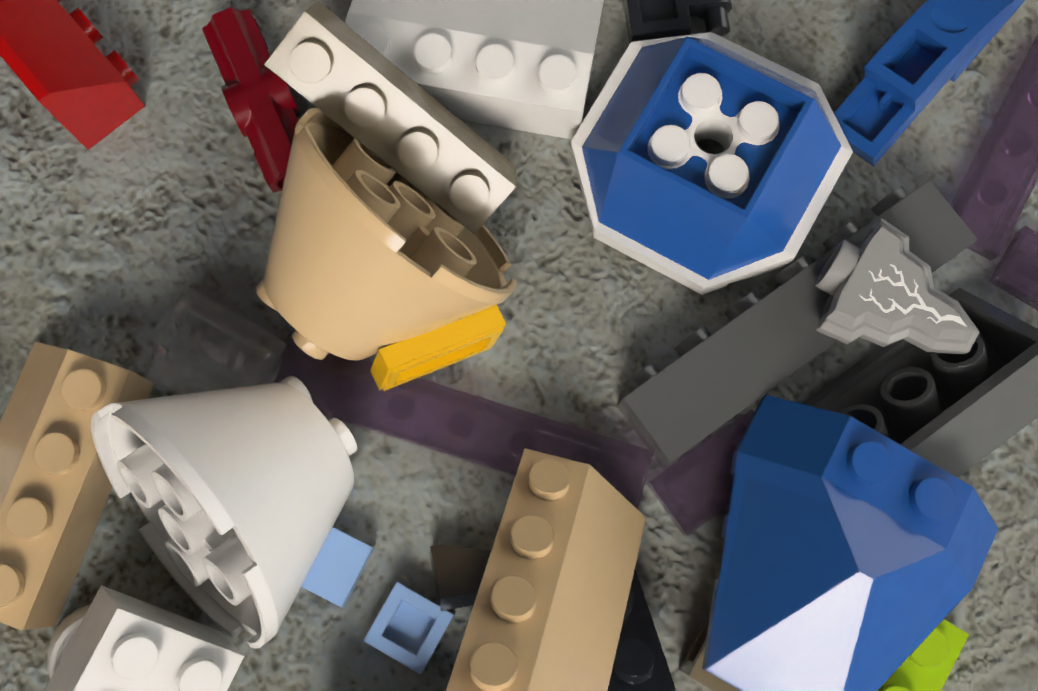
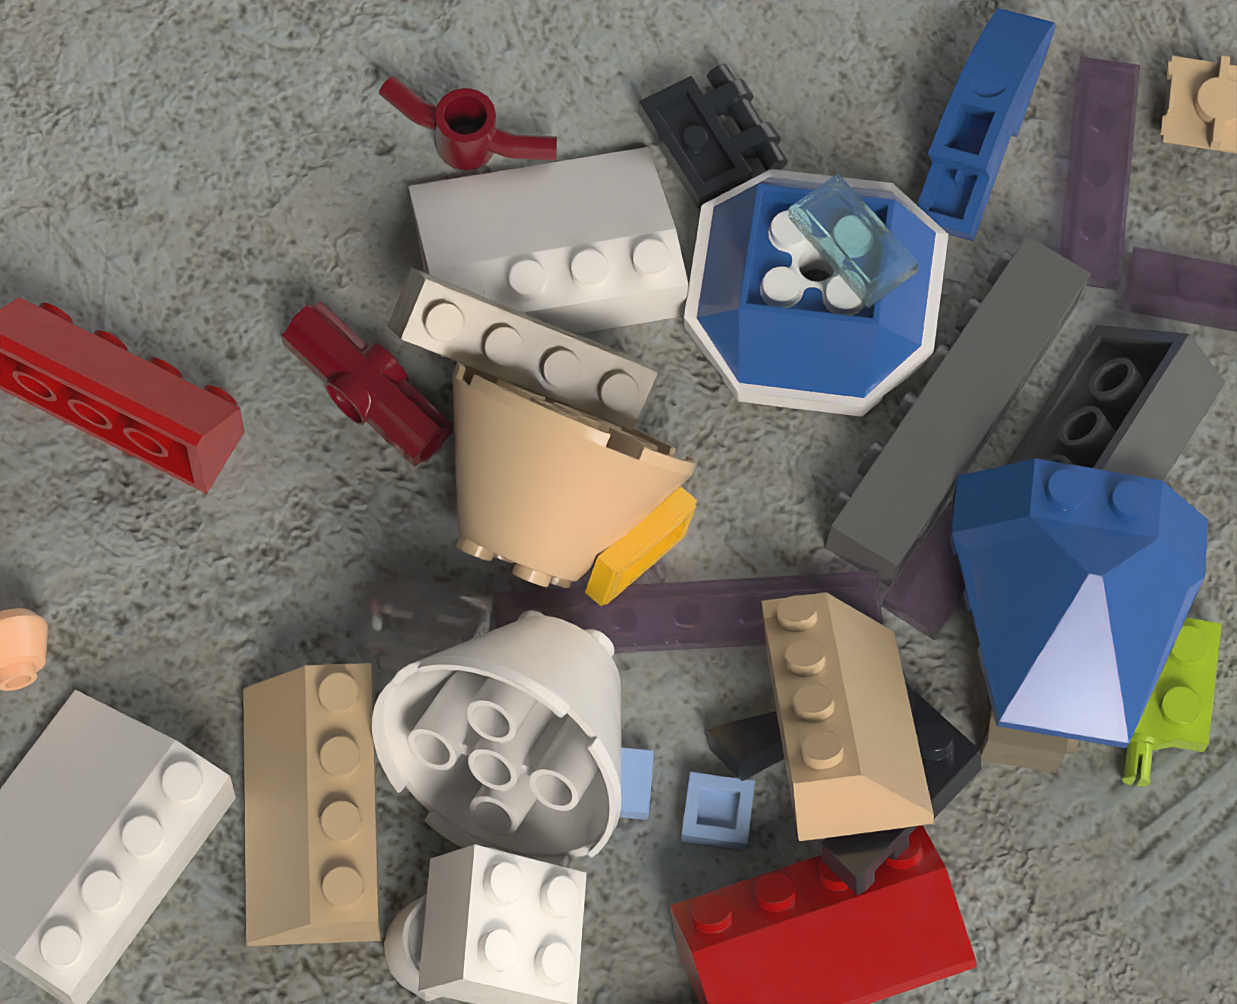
camera: 25 degrees left, 10 degrees down
(756, 124) = (853, 240): none -> clear light blue tile
(889, 296) = (1031, 350): light grey rock -> none

